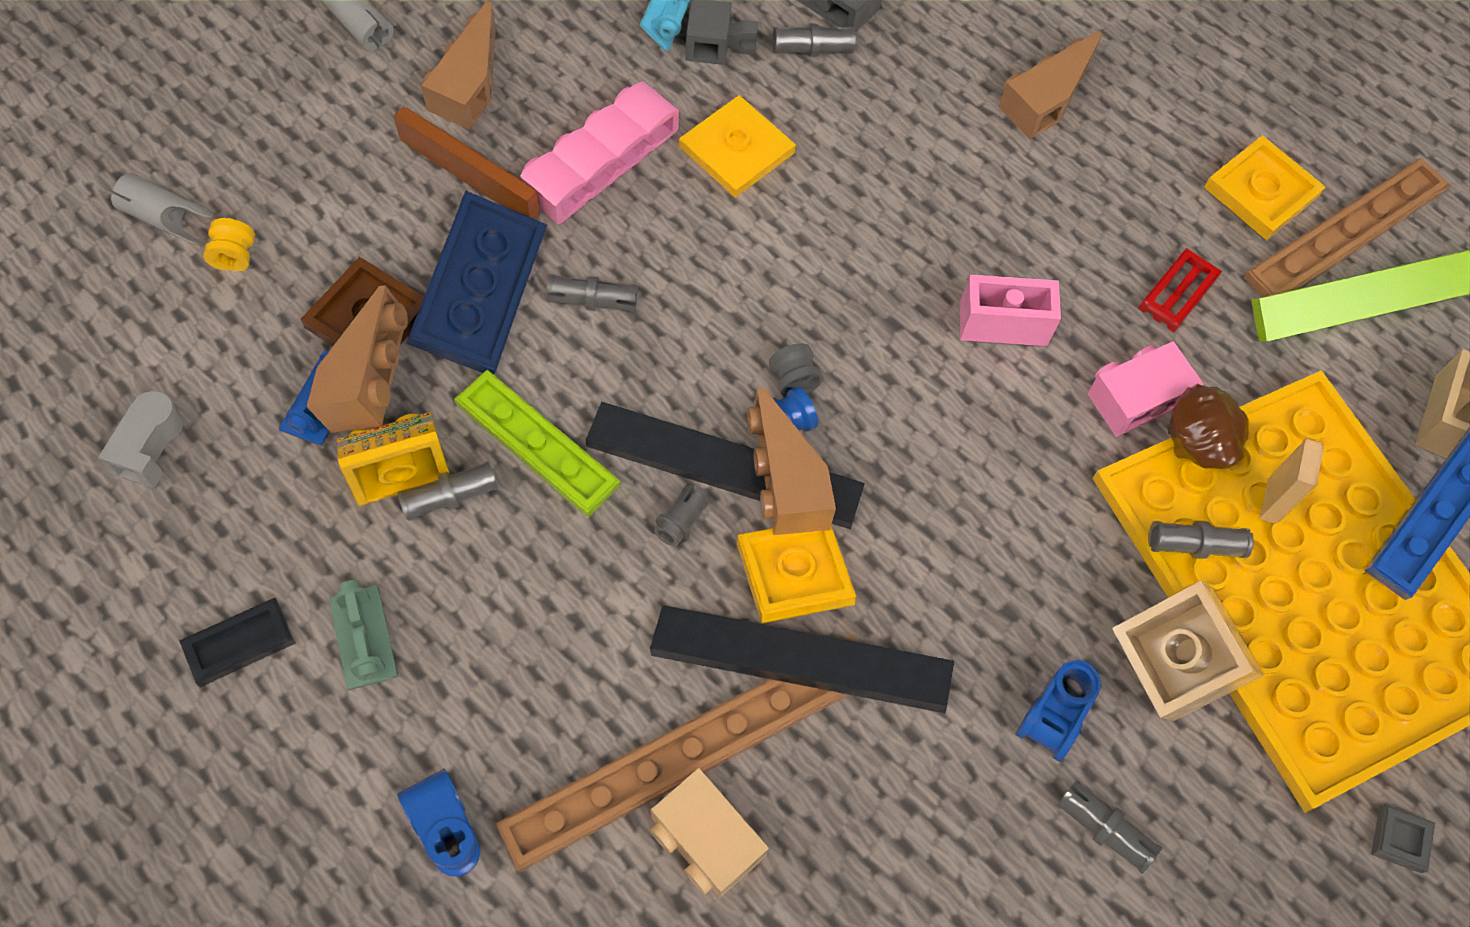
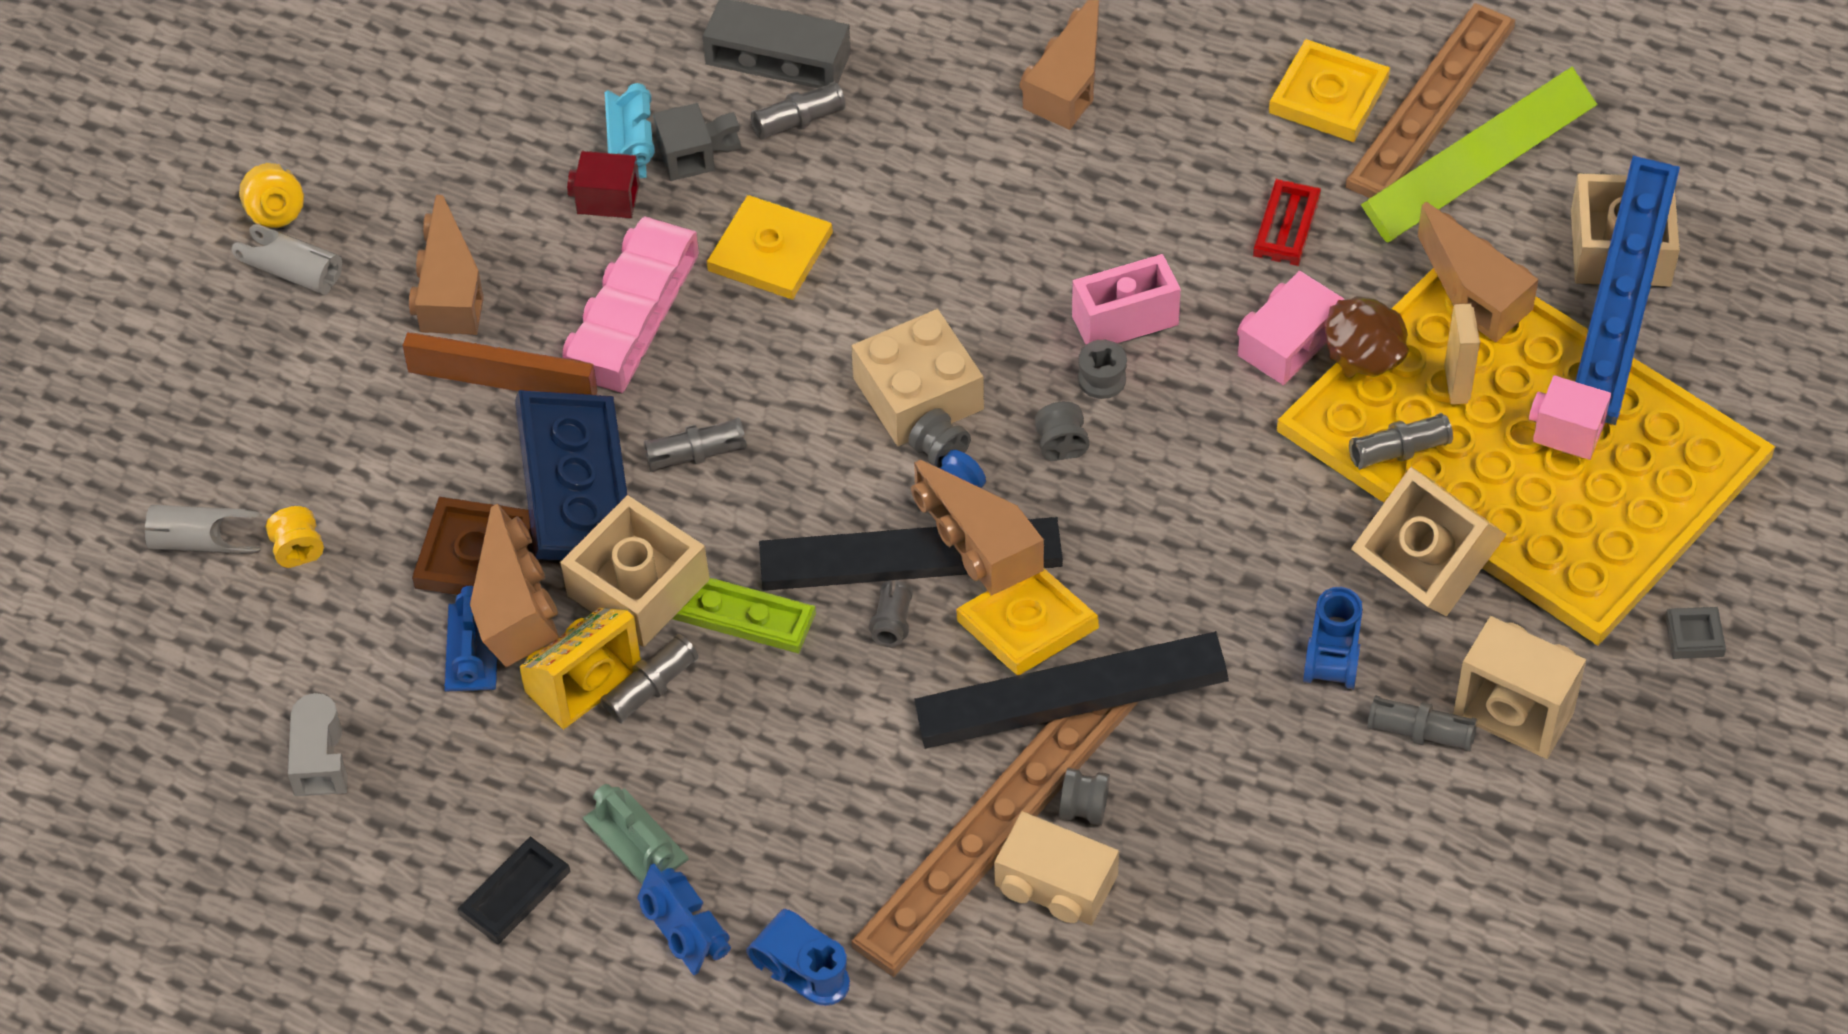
camera: 15 degrees left, 10 degrees down
(360, 754) = (669, 901): none -> blue hinge
(474, 391) = (637, 566): none -> tan brick
(629, 43) = (604, 184): none -> dark red brick
(766, 769) = (1084, 796): none -> dark grey wheel
(803, 303) = (917, 371): none -> tan brick
(903, 405) = (1061, 431): none -> dark grey wheel
(963, 373) = (1111, 377): none -> dark grey wheel
(1218, 839) = (1519, 686): none -> tan brick
(1331, 405) = (1476, 273): none -> medium nougat slope
(1369, 582) = (1570, 416): none -> bright pink brick

